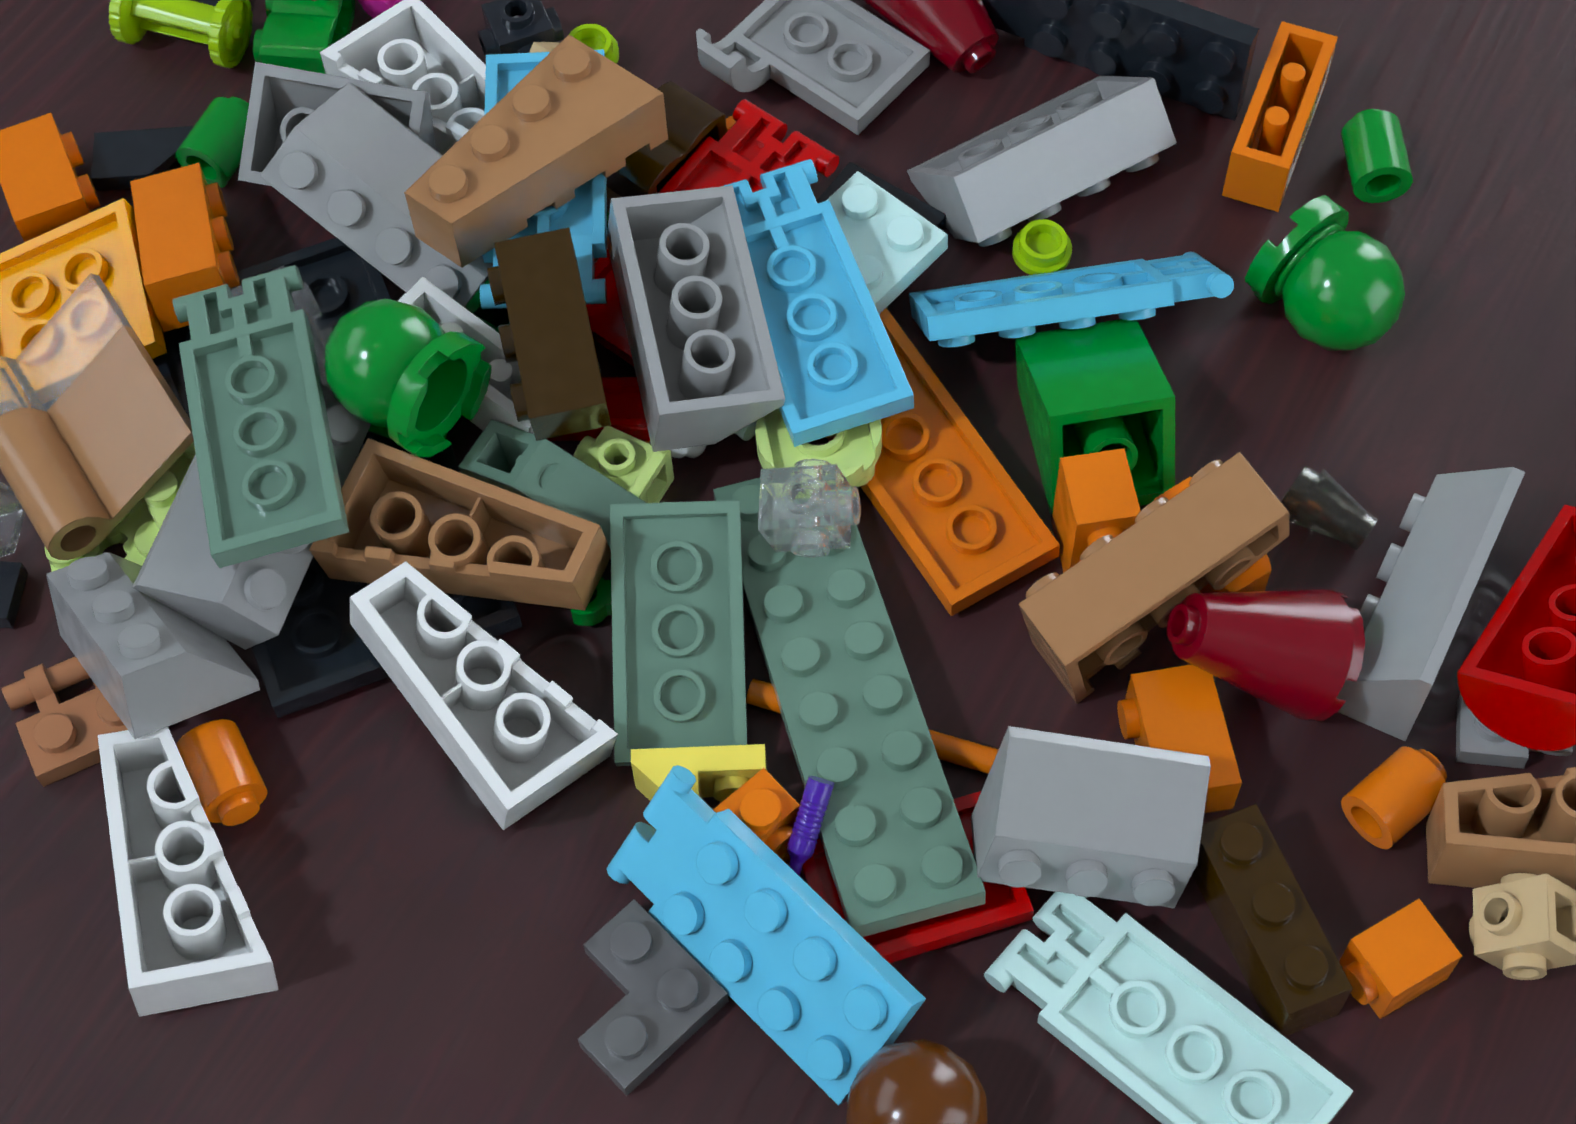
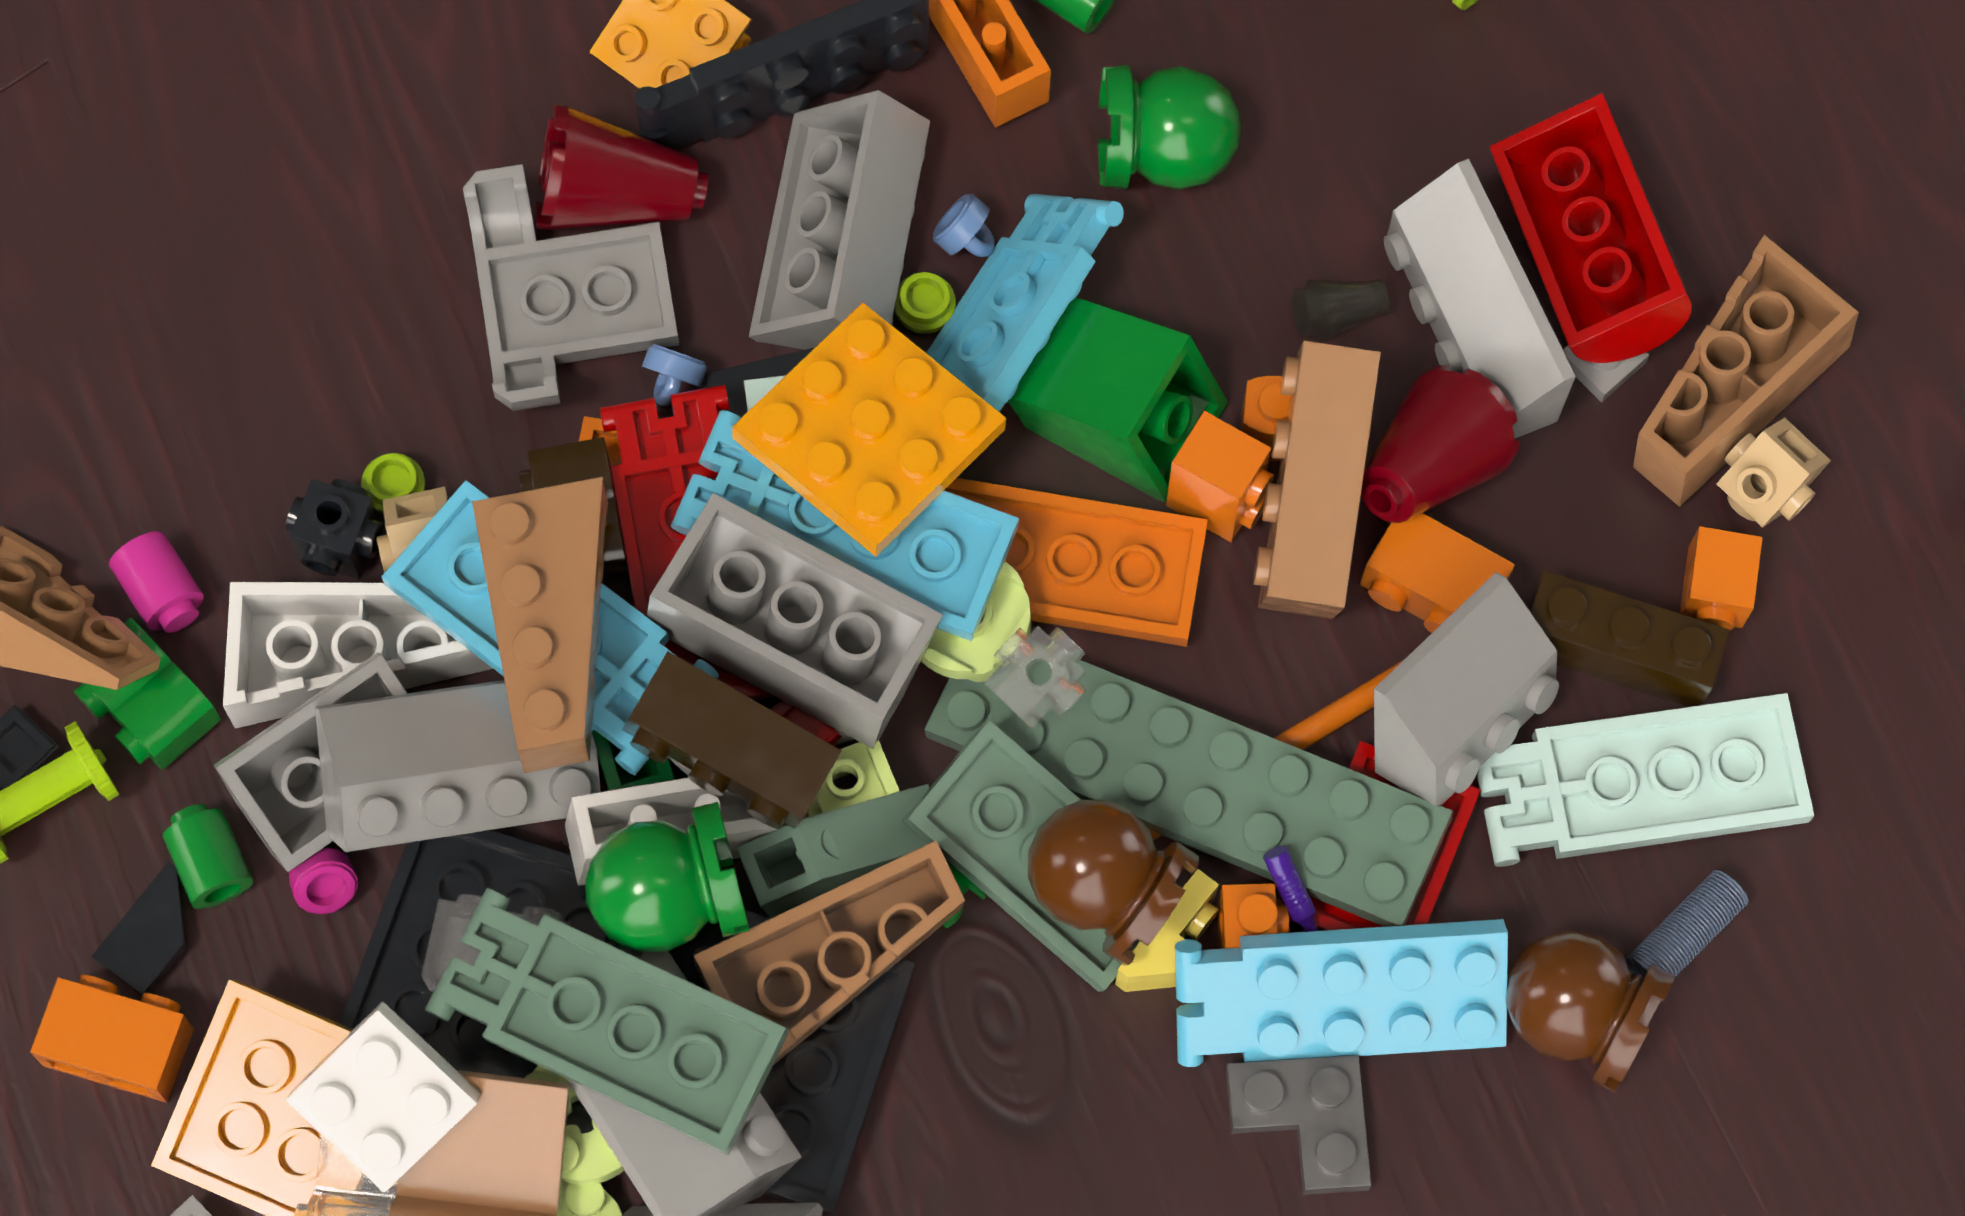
camera: 55 degrees left, 10 degrees up
(91, 327) = (383, 1097): none -> white plate
(181, 238) = (311, 960): orange brick -> none
(260, 215) = (323, 882): none -> dark pink tile
(483, 705) = (979, 1049): white wedge -> none
(686, 663) = (1102, 871): none -> reddish brown tile
(834, 135) = (672, 370): none -> medium blue tile
(885, 250) = (869, 429): none -> light orange plate
(1121, 222) = (960, 225): none -> medium blue tile
(1395, 796) = (1603, 468): orange brick -> none

